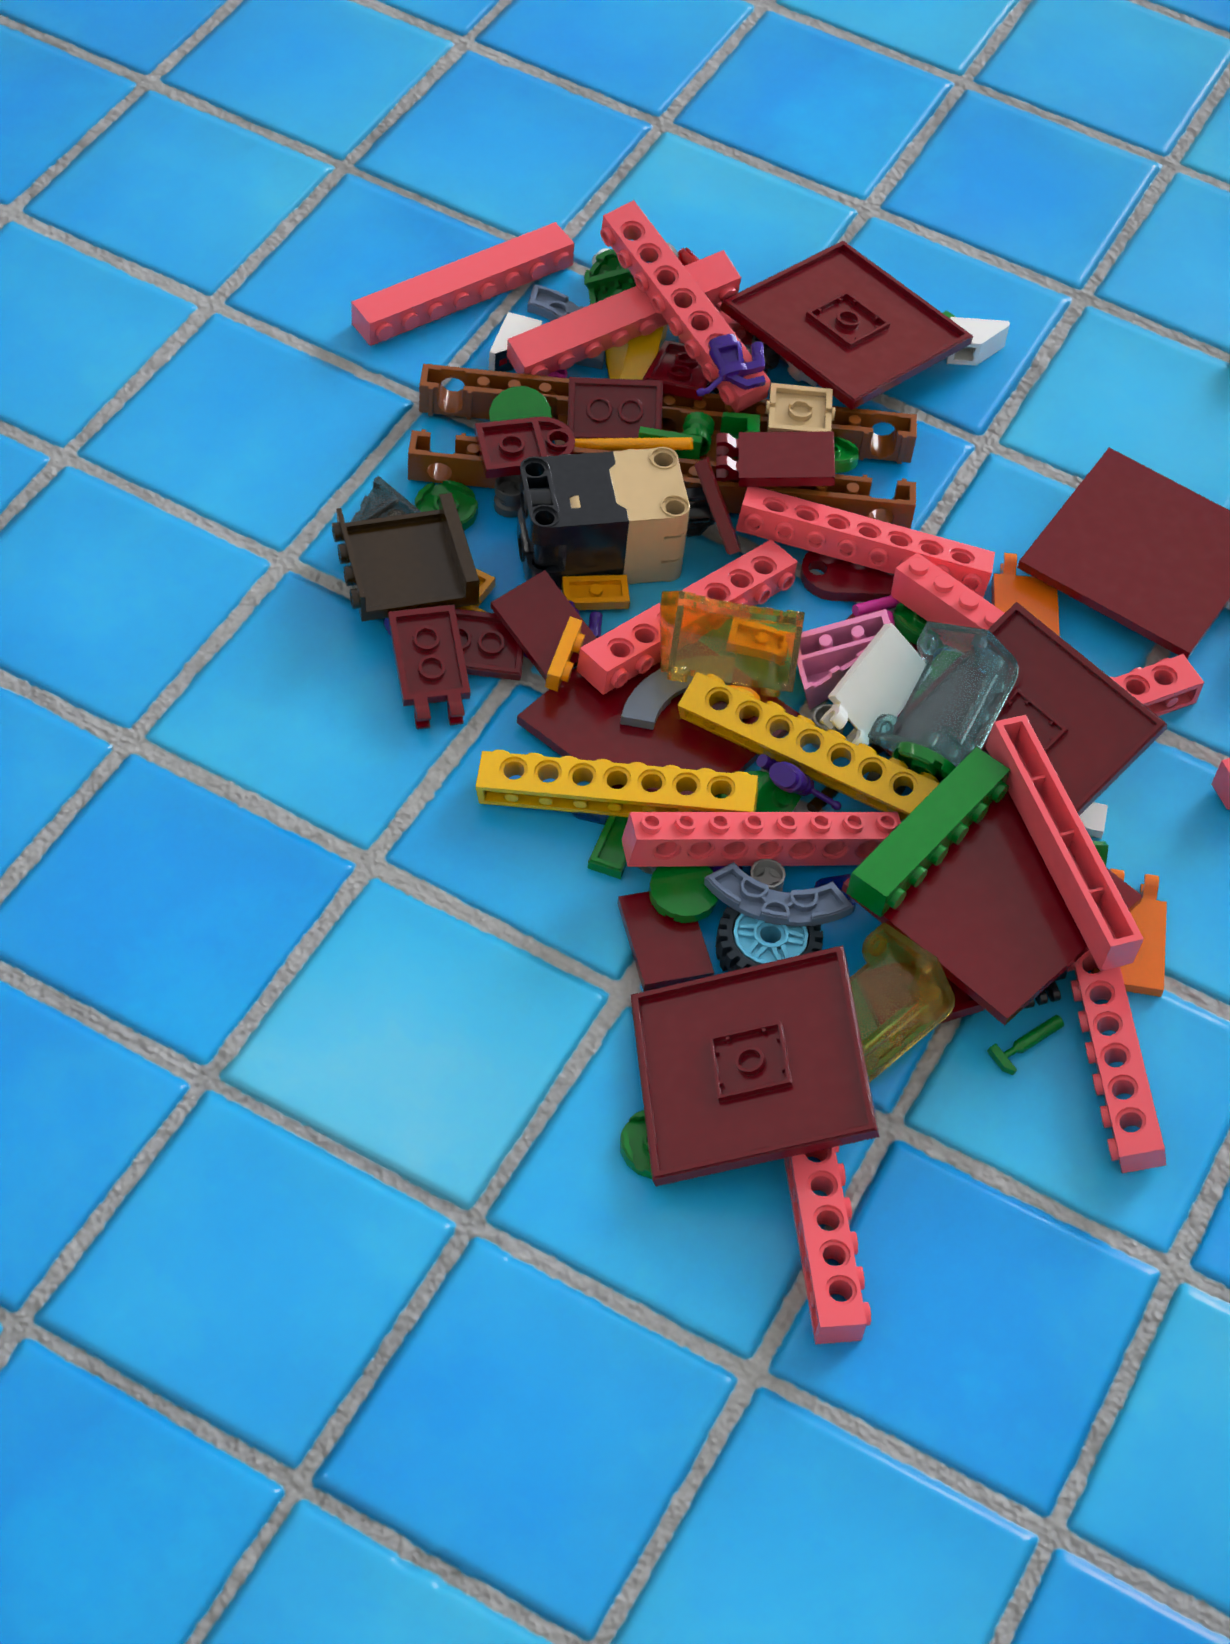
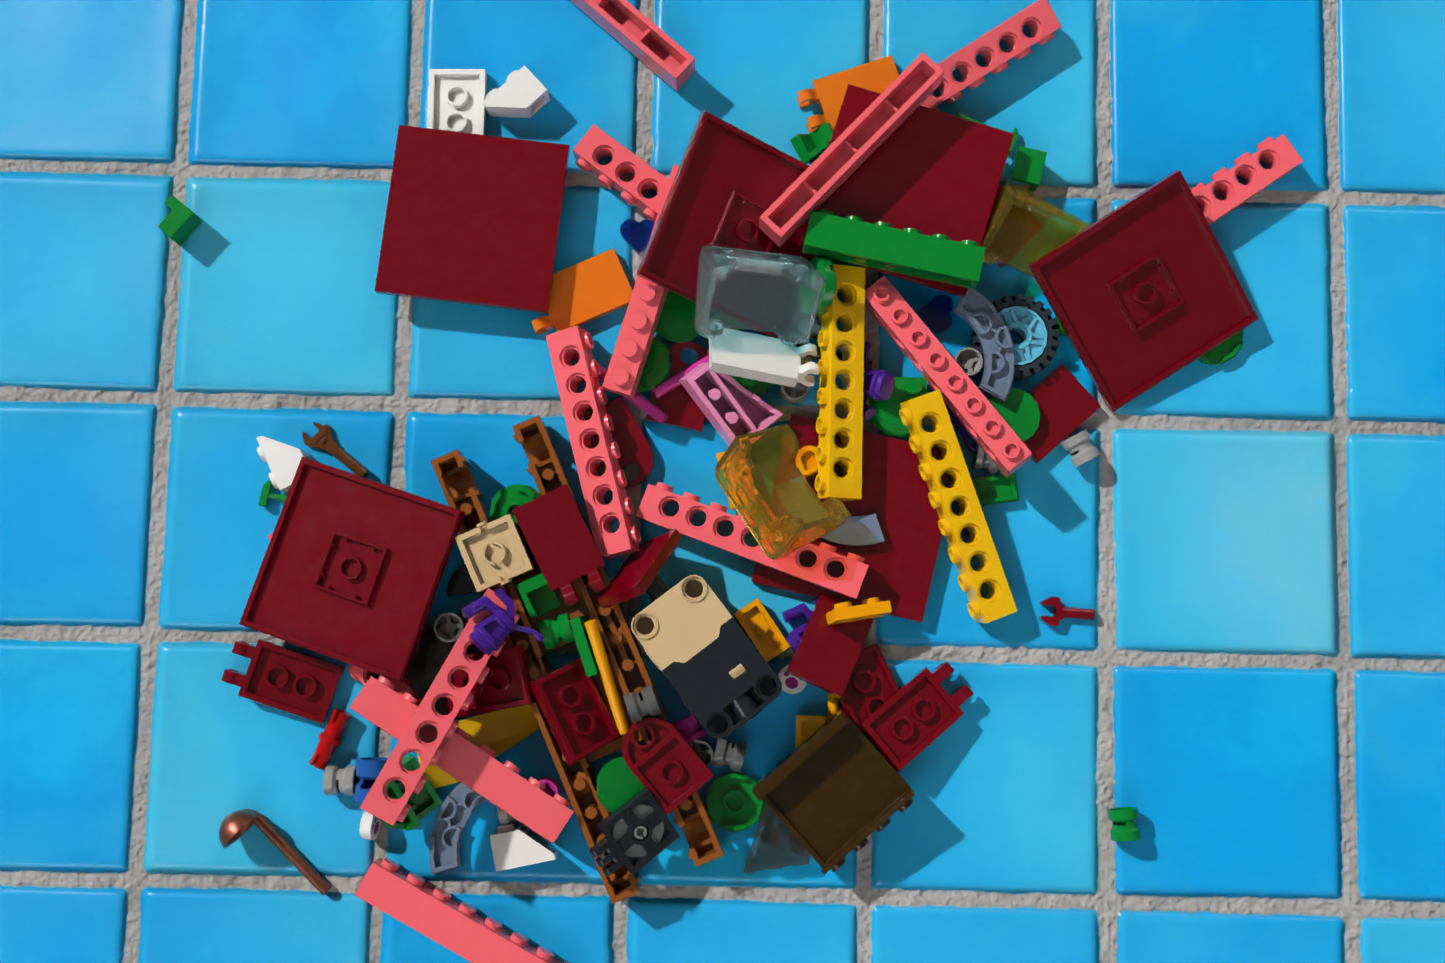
camera: 115 degrees left, 30 degrees up
(195, 780) = (1124, 824): none -> green wheel
(445, 843) = (1064, 612): none -> dark red bar
(474, 393) = (633, 834): none -> black piece
(496, 514) = (729, 754): none -> dark grey wheel
(589, 440) = (642, 703): none -> dark grey wheel
(609, 939) = (1080, 448): none -> light grey wheel
(665, 188) = (241, 821): none -> copper piece
(775, 254) = (286, 679): none -> dark red tile
(960, 1048) = (1028, 166): none -> green panel
(981, 376) = (325, 441): none -> reddish brown piece

